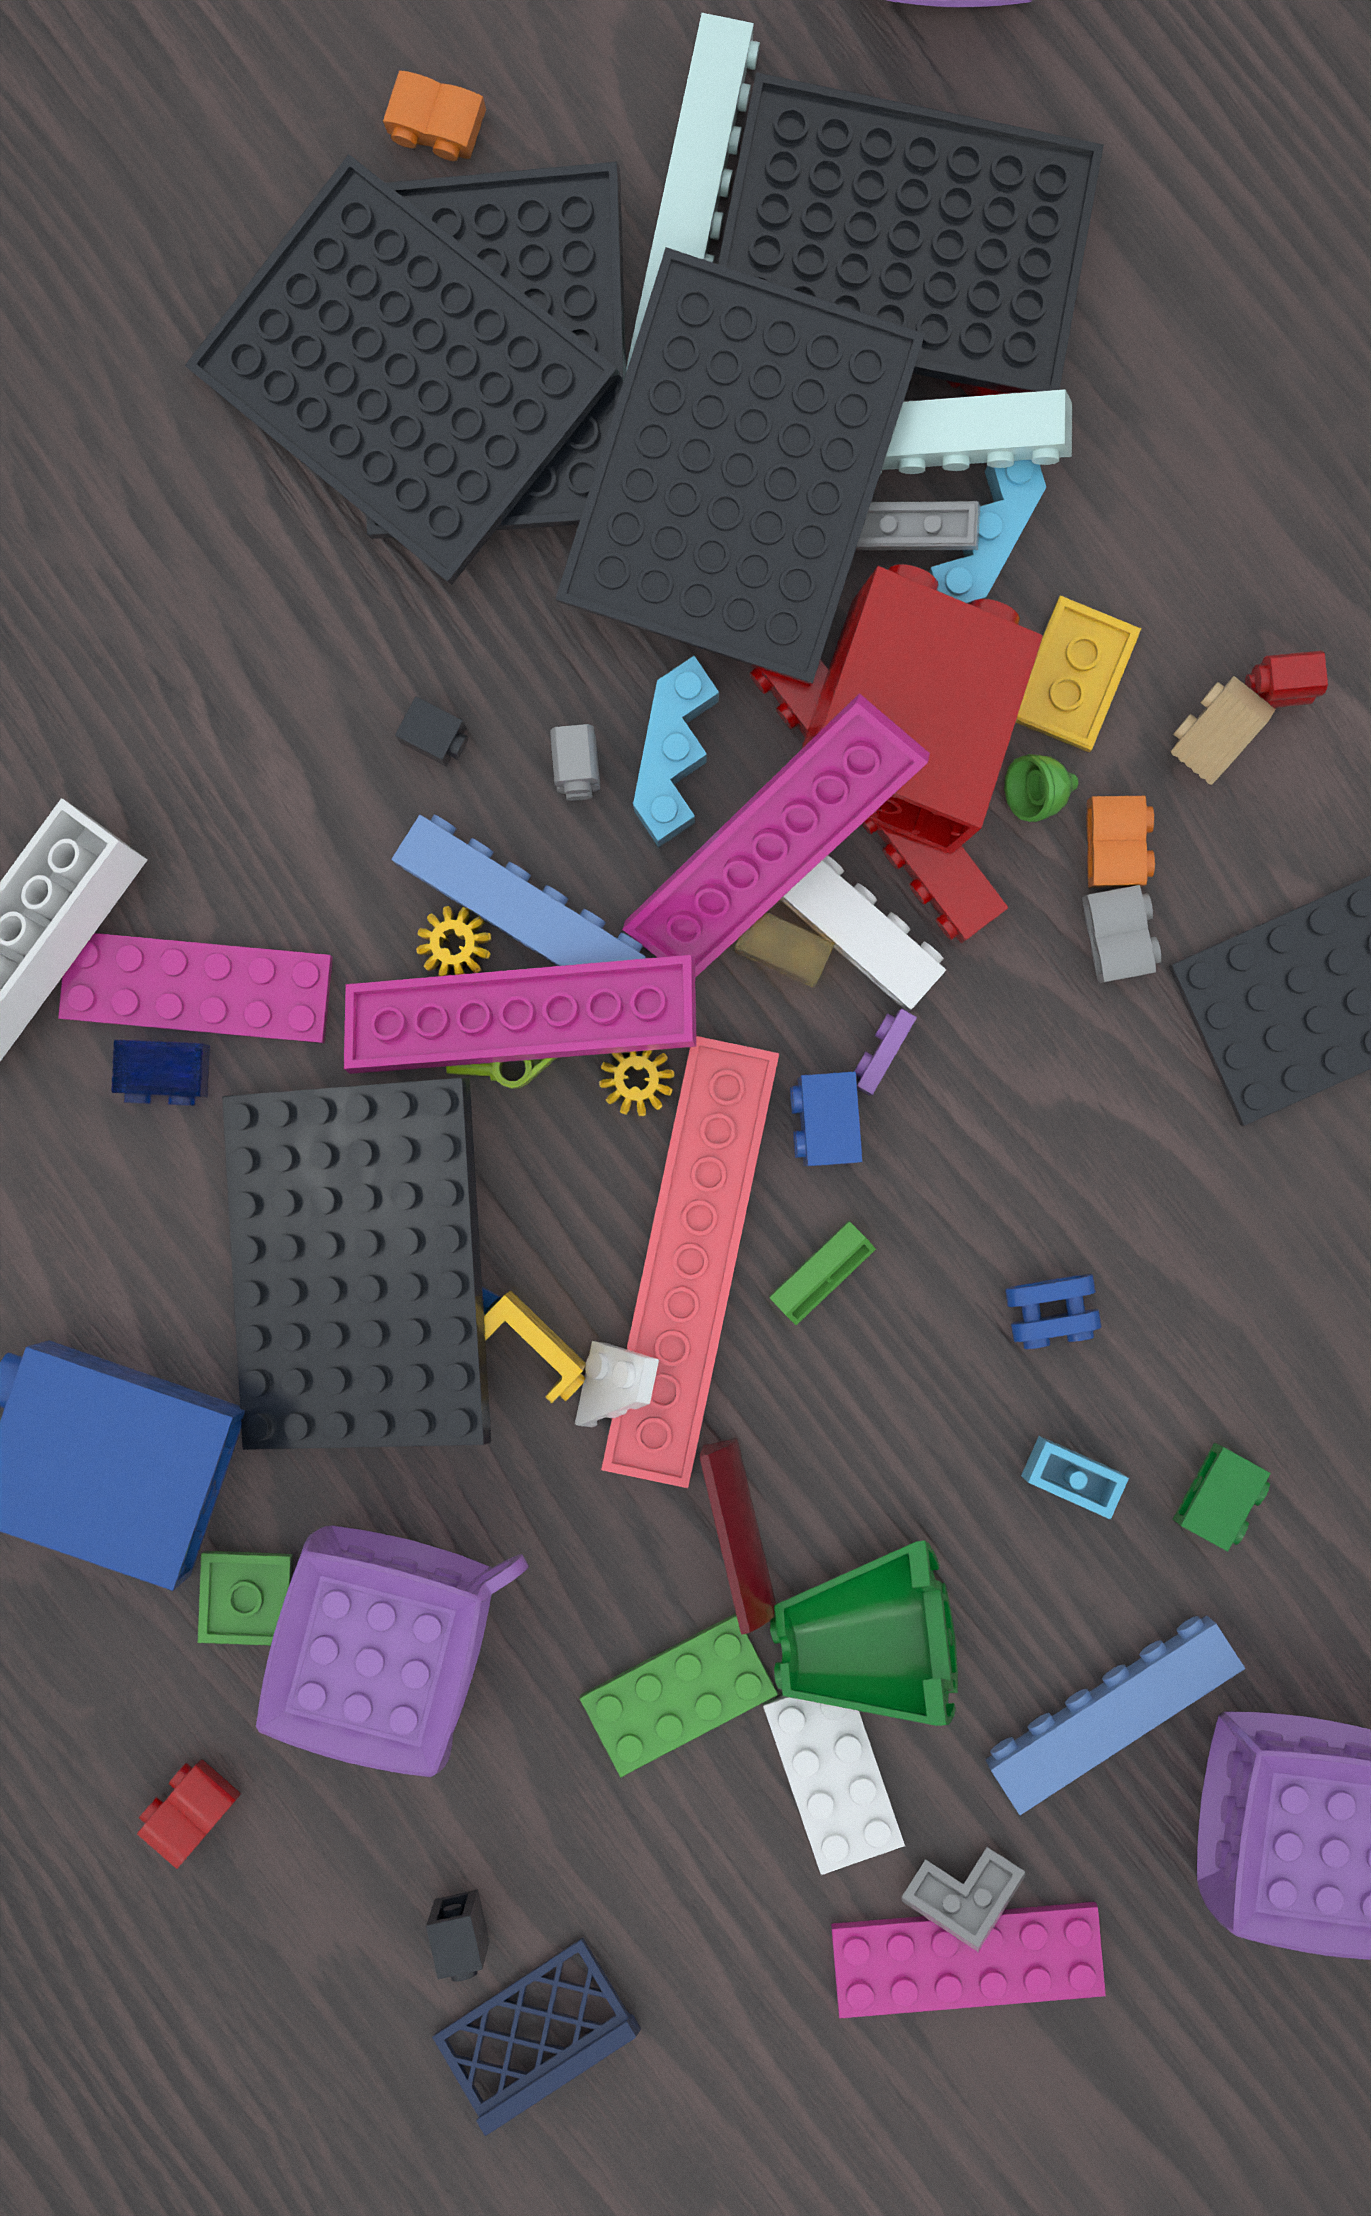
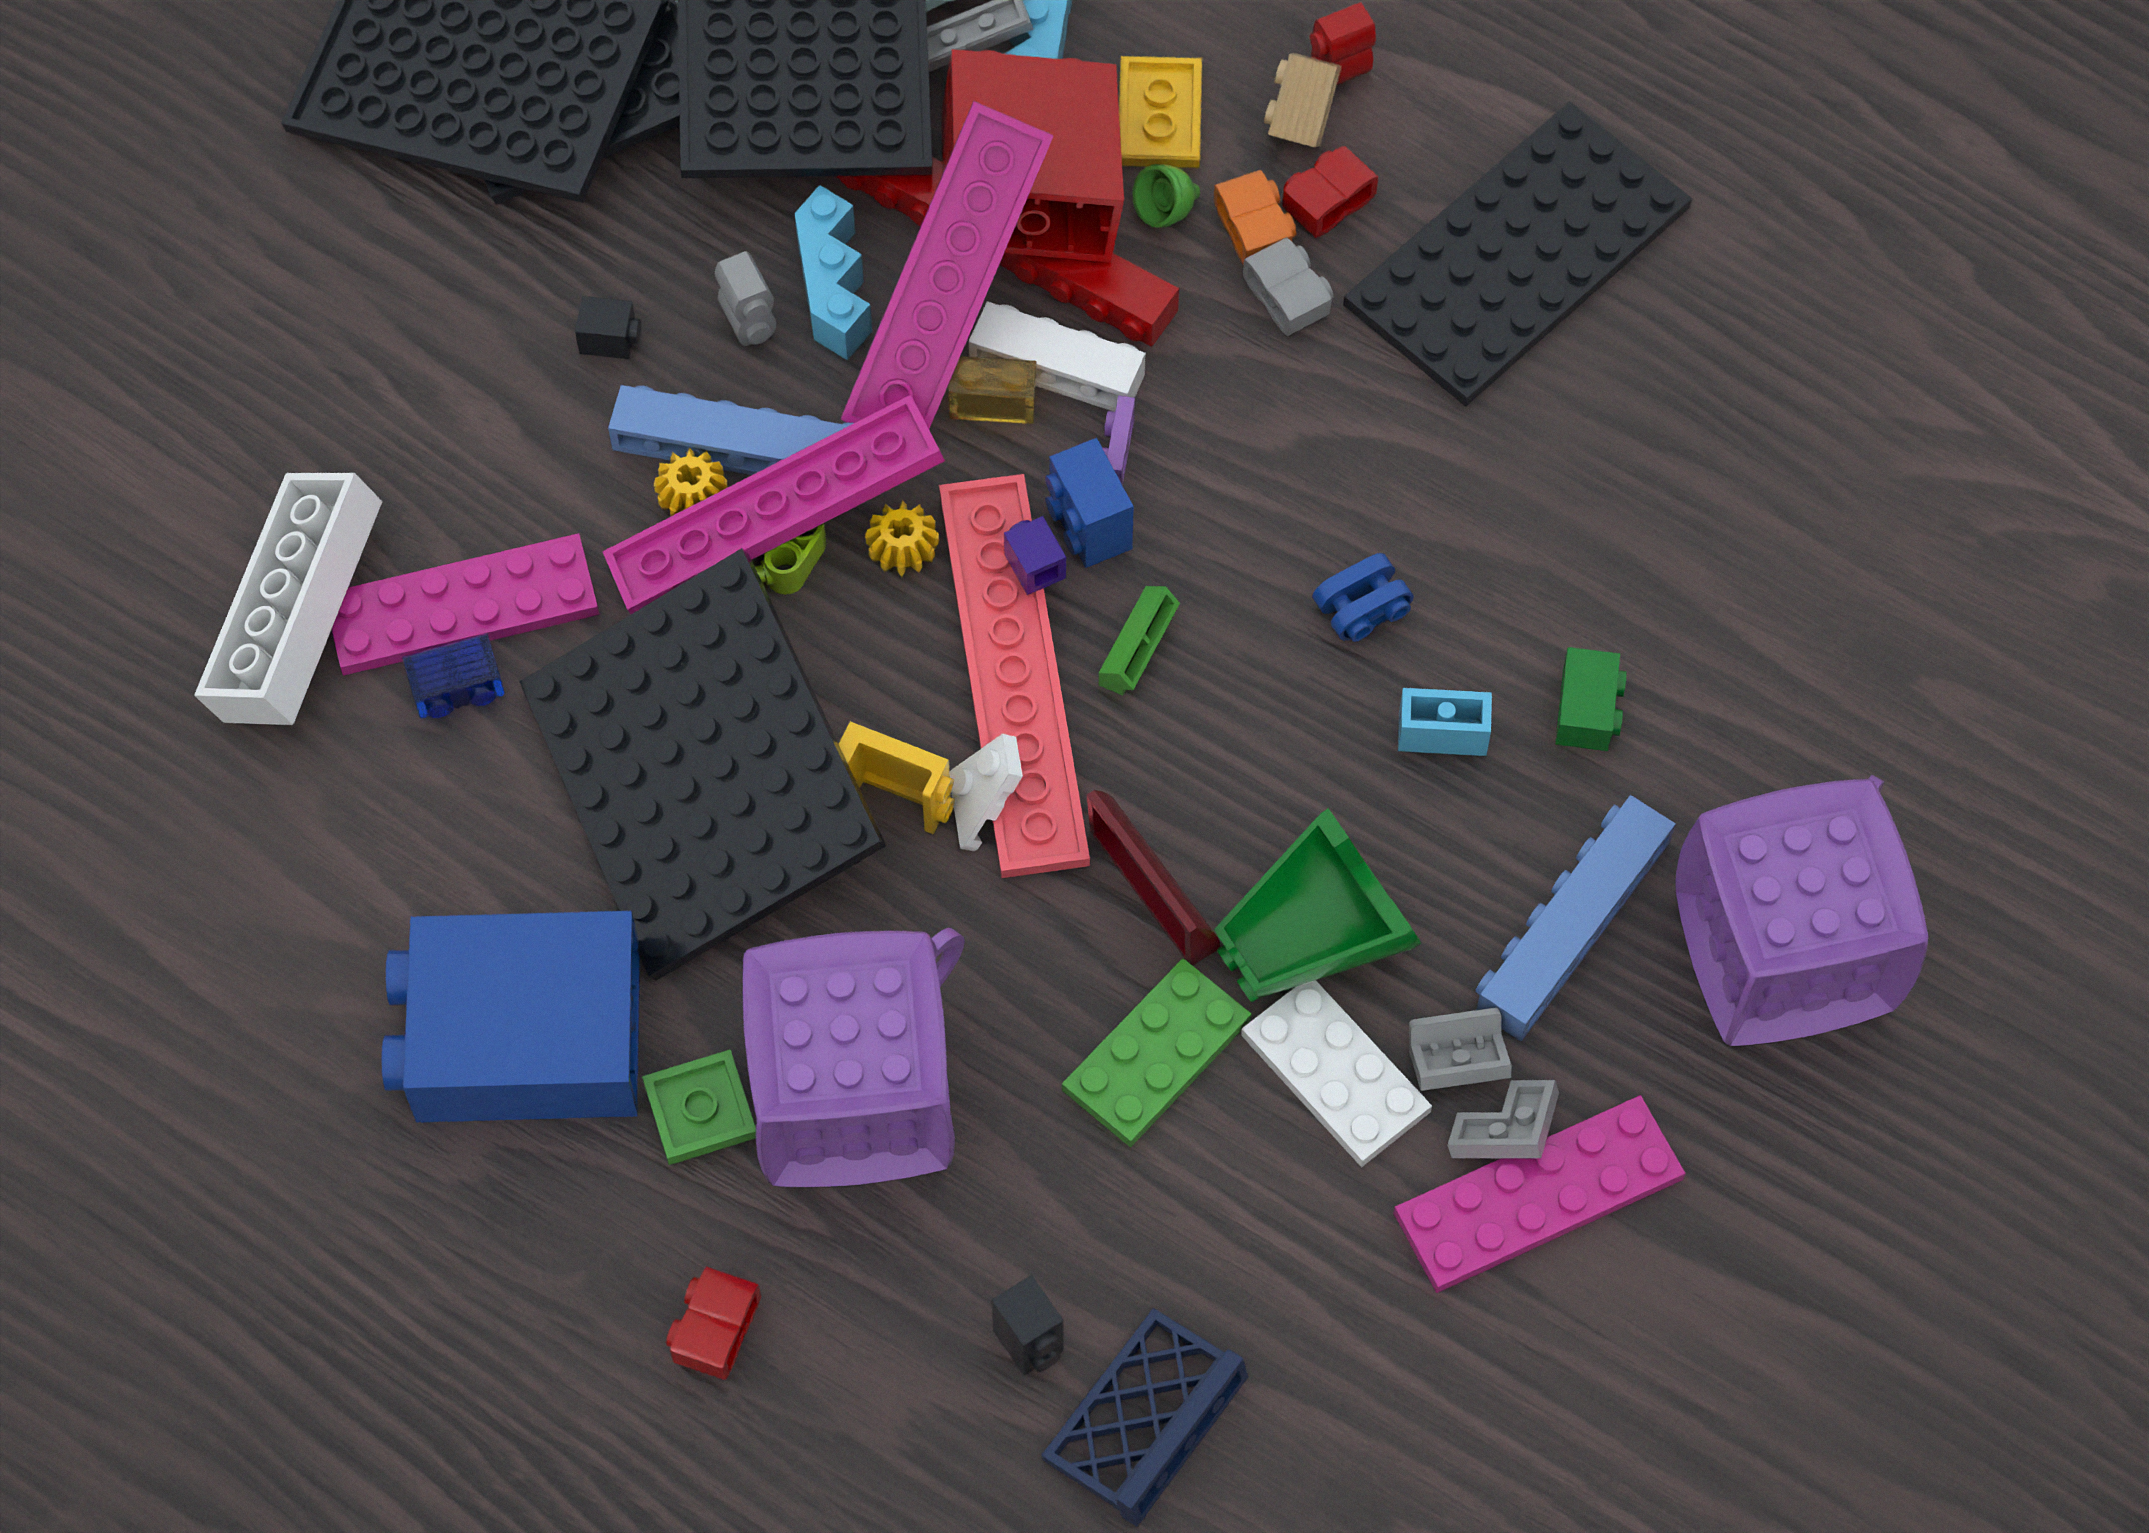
camera: 20 degrees left, 25 degrees down
(752, 1157) = (1034, 554): none -> dark purple brick
(950, 1807) = (1458, 1049): none -> light grey bracket
(1205, 838) = (1329, 191): none -> red brick

